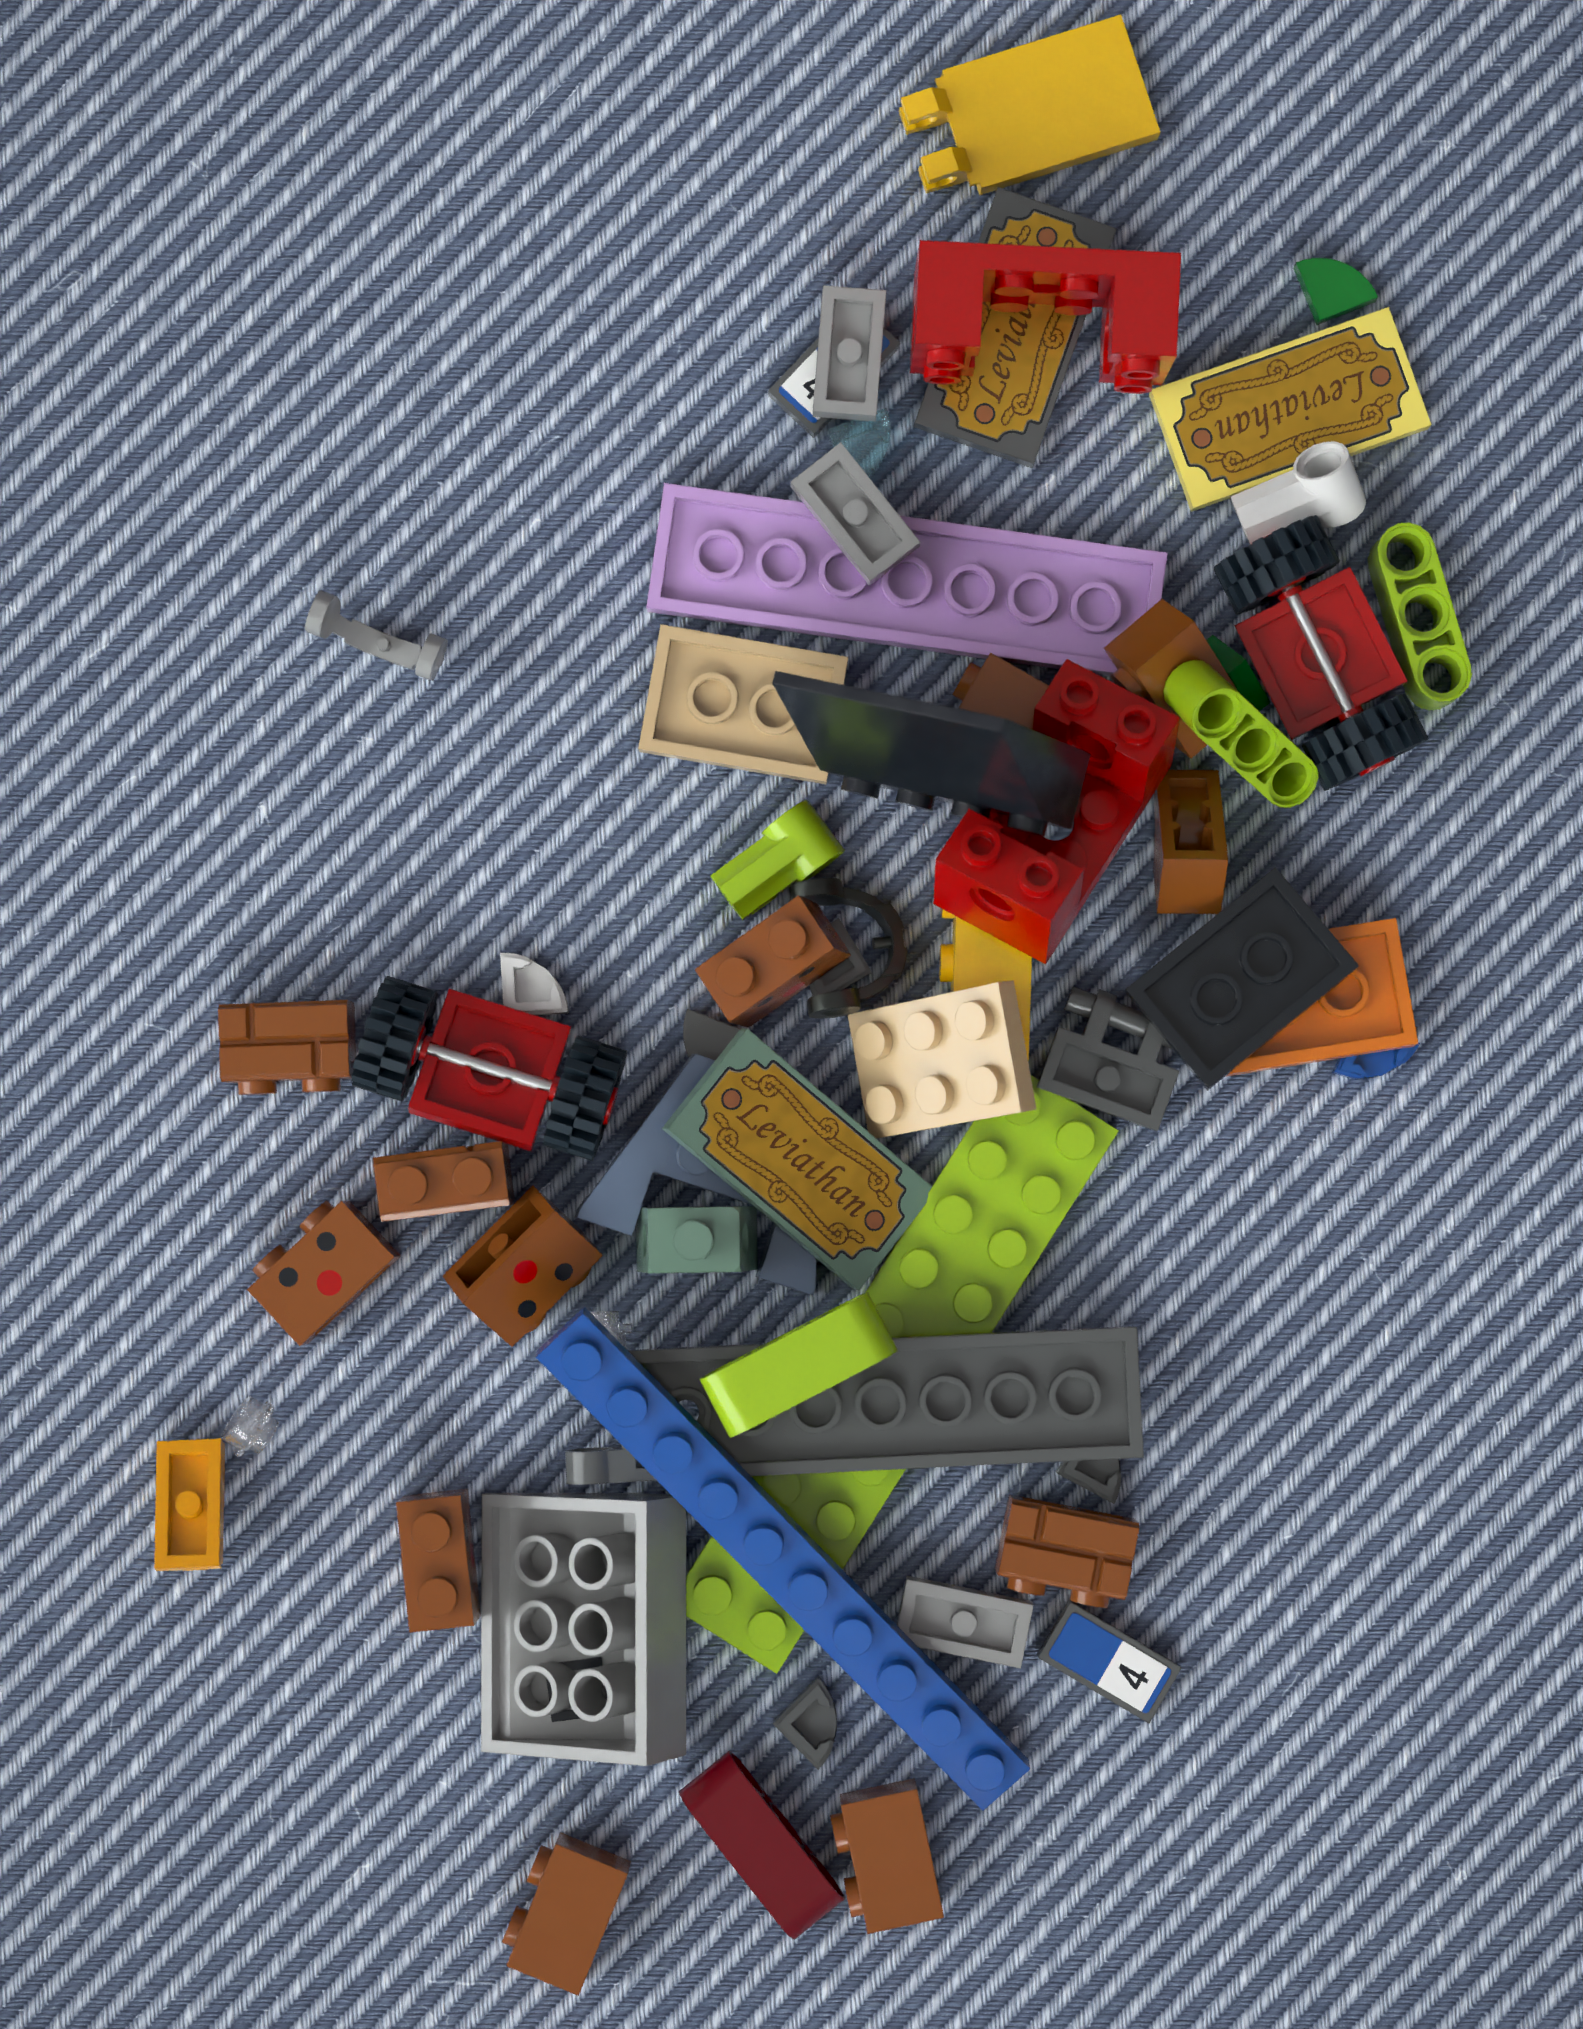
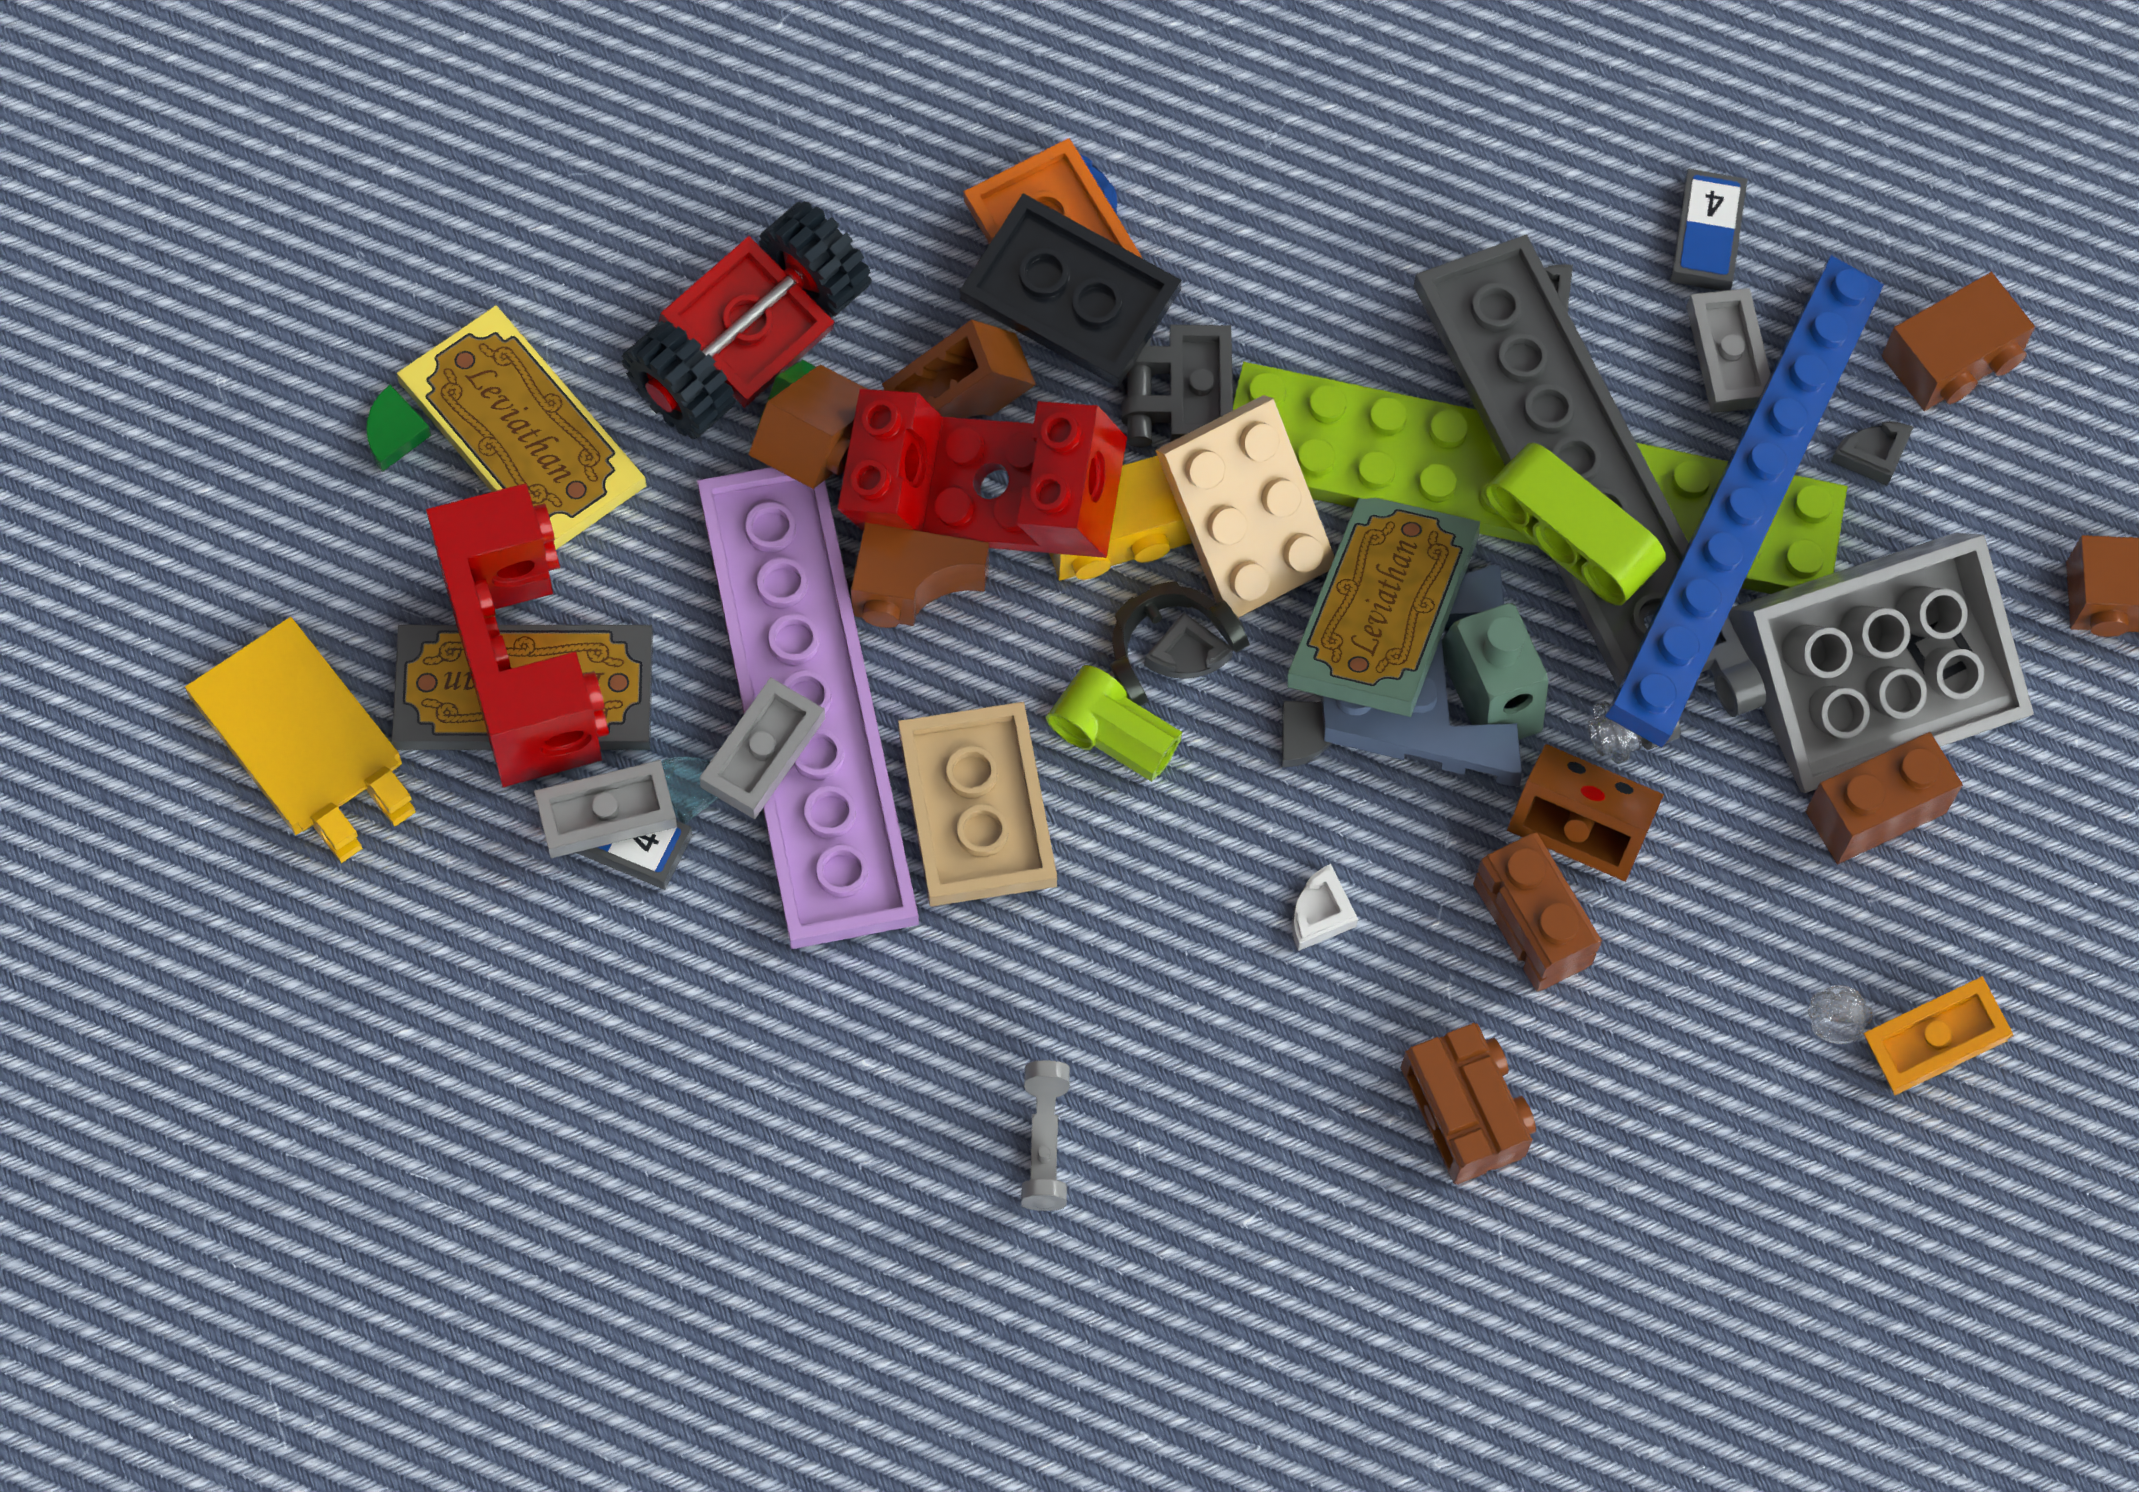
camera: 115 degrees left, 20 degrees down
(322, 1271) = (1667, 994): dark orange brick -> none
(488, 1068) = (1416, 900): plate -> none
(761, 1845) = (2000, 449): dark red beam -> none
(772, 962) = (1213, 685): dark orange brick -> none
(936, 754) = (972, 579): black slope -> none
(1067, 1550) = (1630, 286): dark orange brick -> none
(1240, 734) = (849, 351): lime beam -> none
(1319, 485) = (605, 388): white piece -> none
(1428, 587) = (648, 265): lime beam -> none

